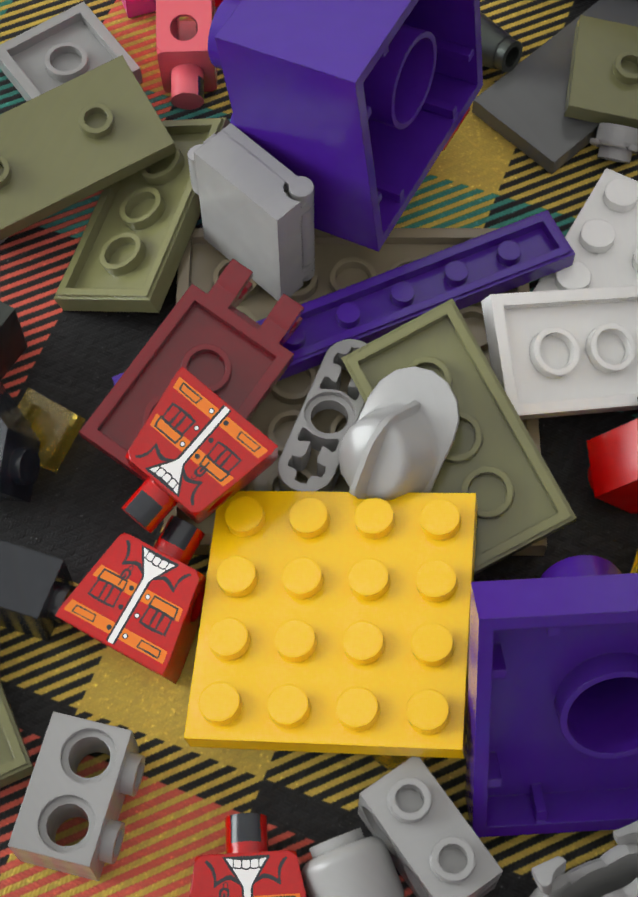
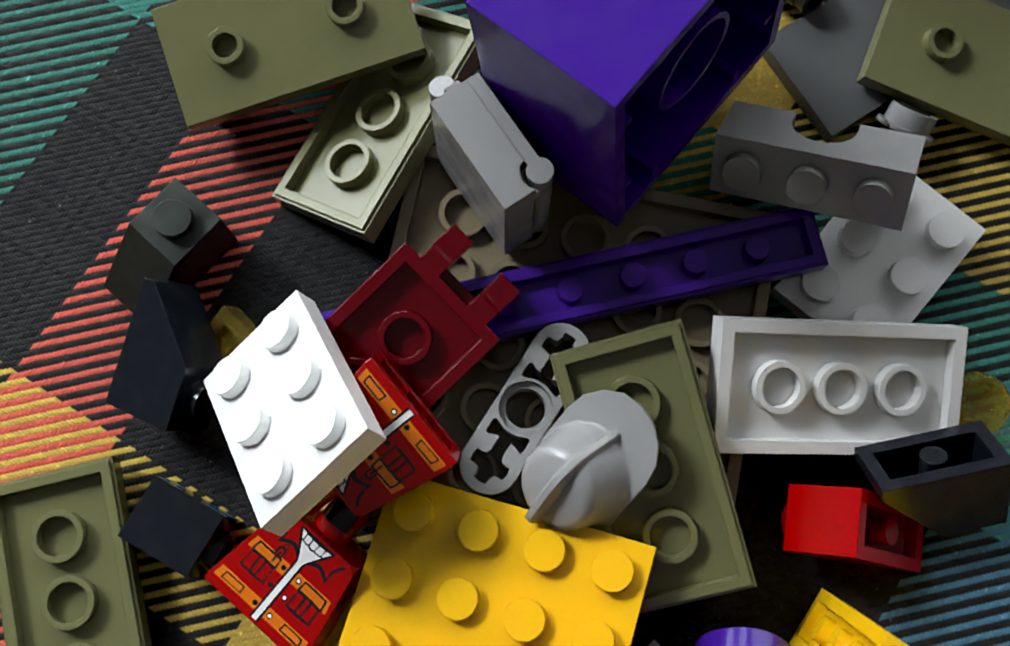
camera: 10 degrees right, 15 degrees up
(117, 429) = (291, 413): none -> white plate
(579, 176) = (853, 179): none -> light grey arch

